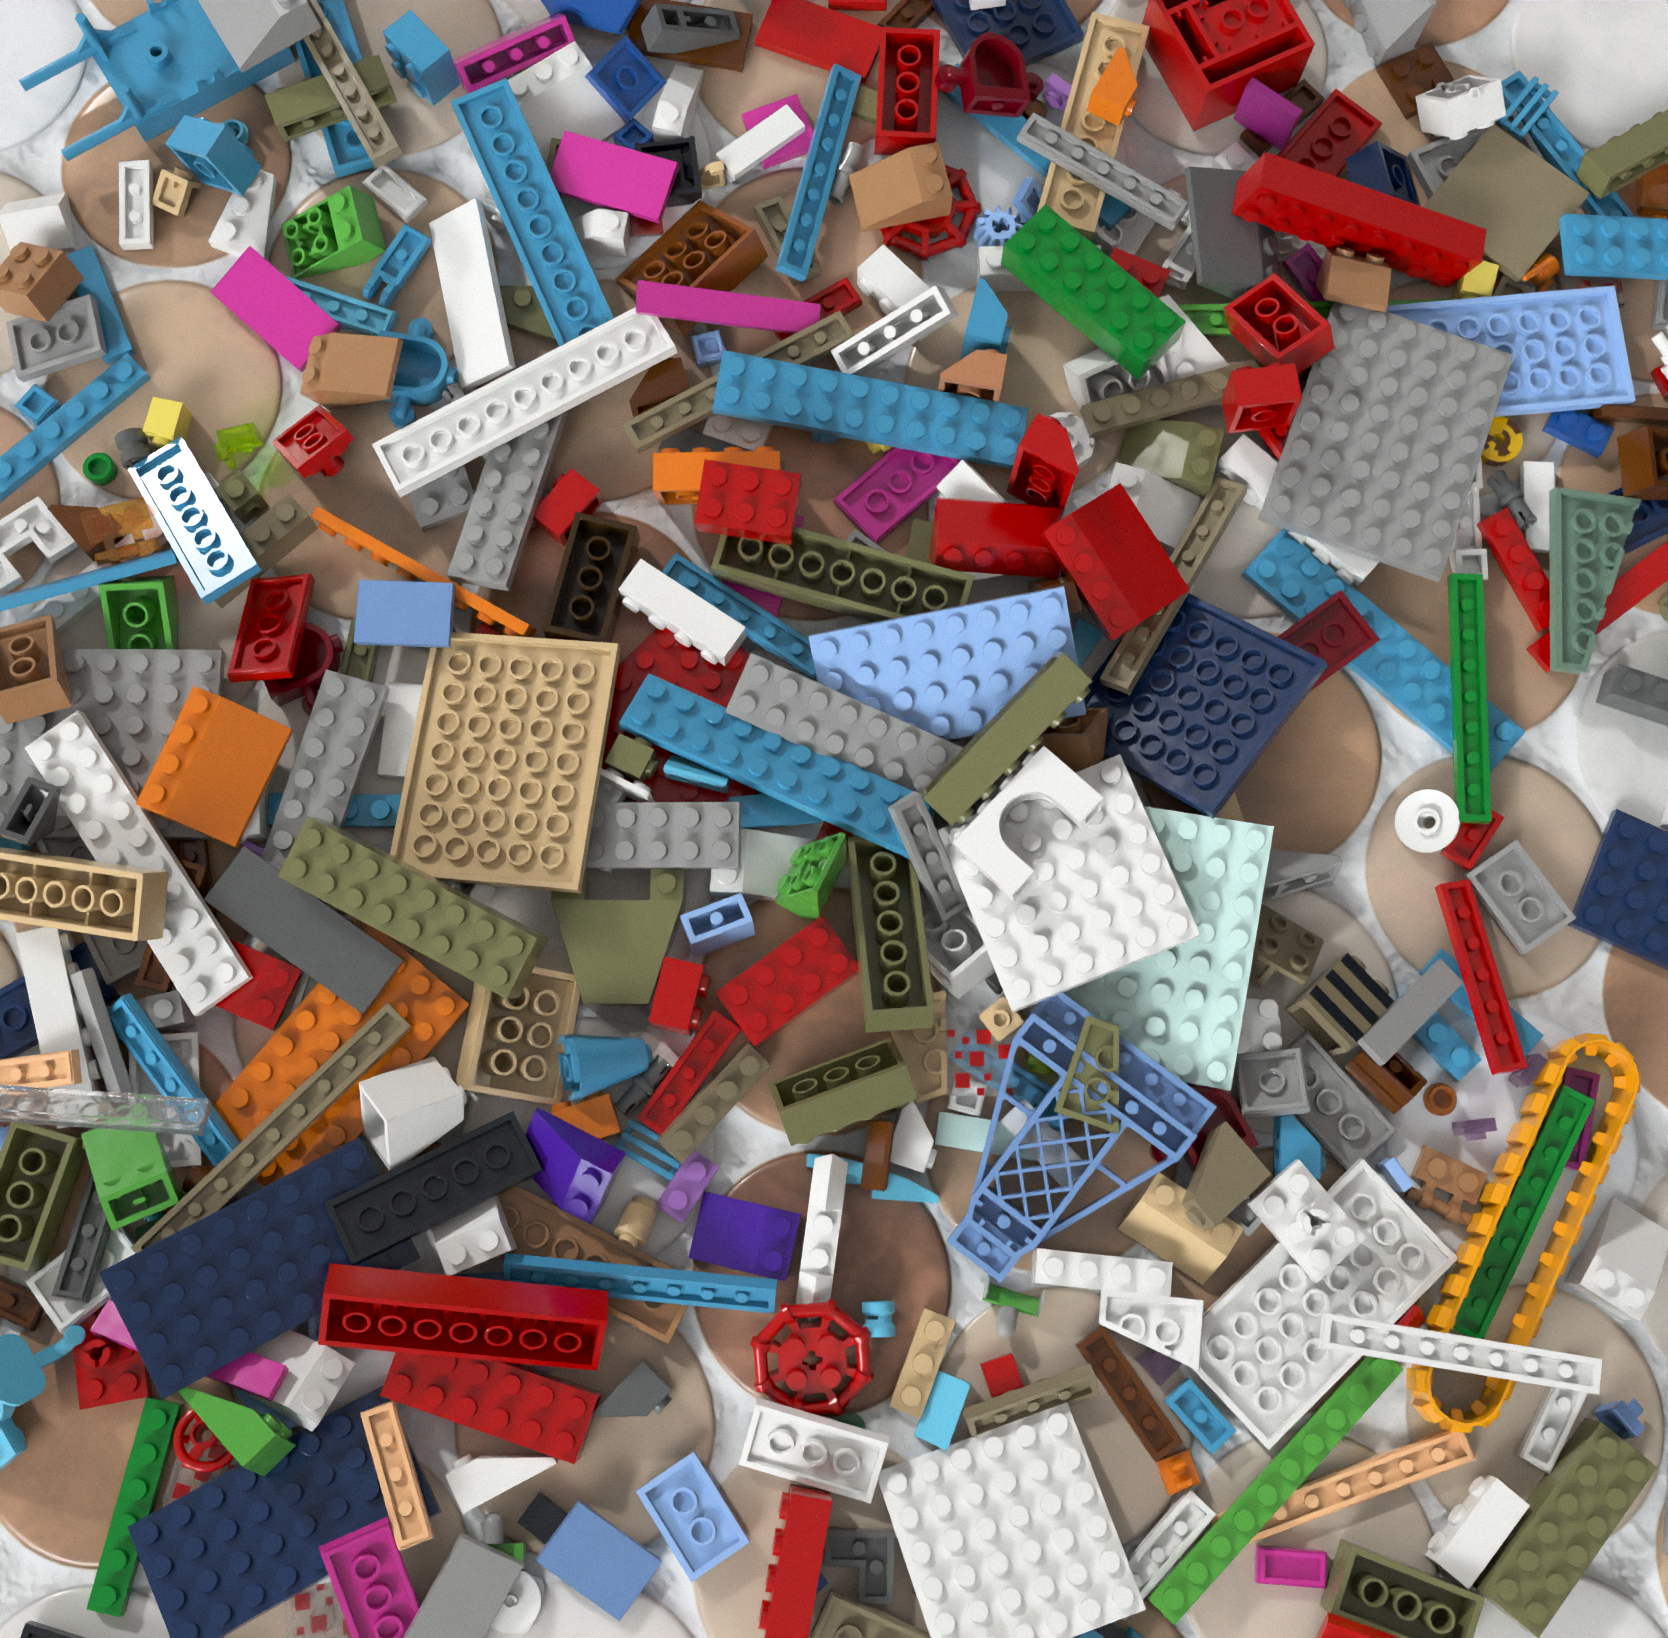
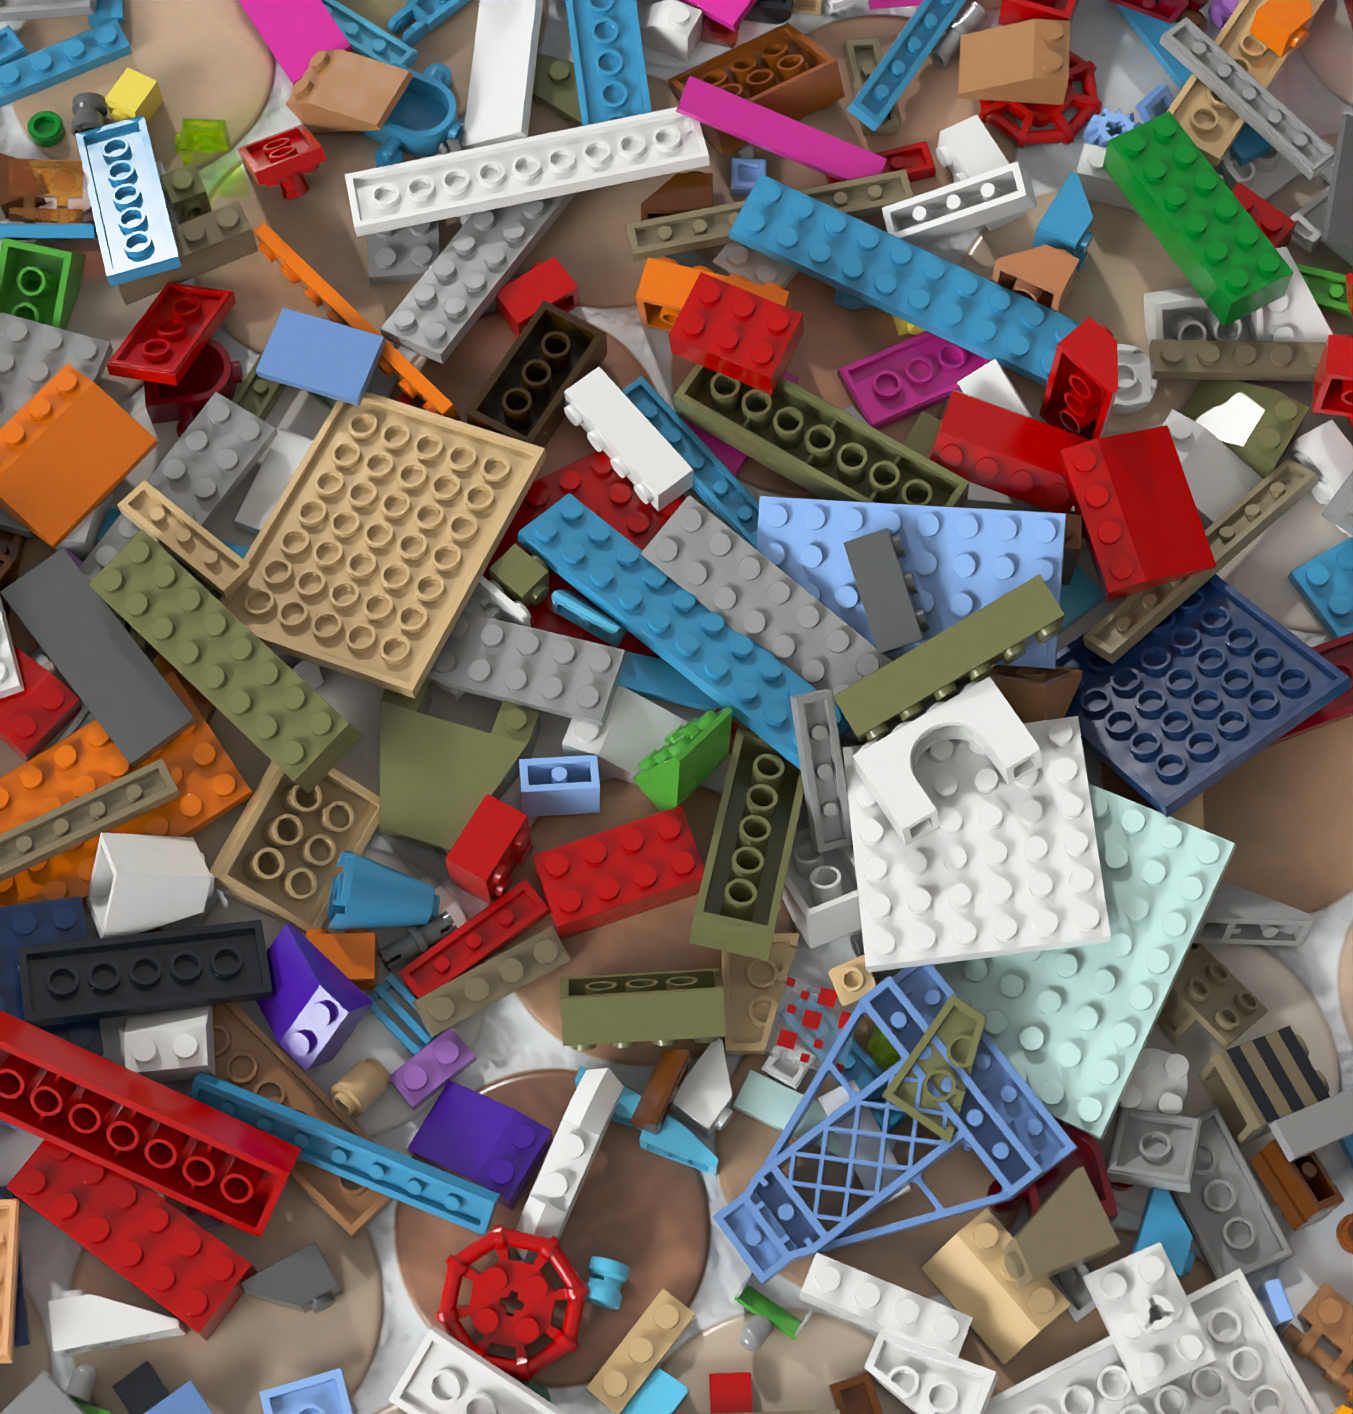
camera: 20 degrees right, 10 degrees down
(344, 809) = (185, 539): none -> tan plate
(936, 690) = (887, 590): none -> dark grey brick

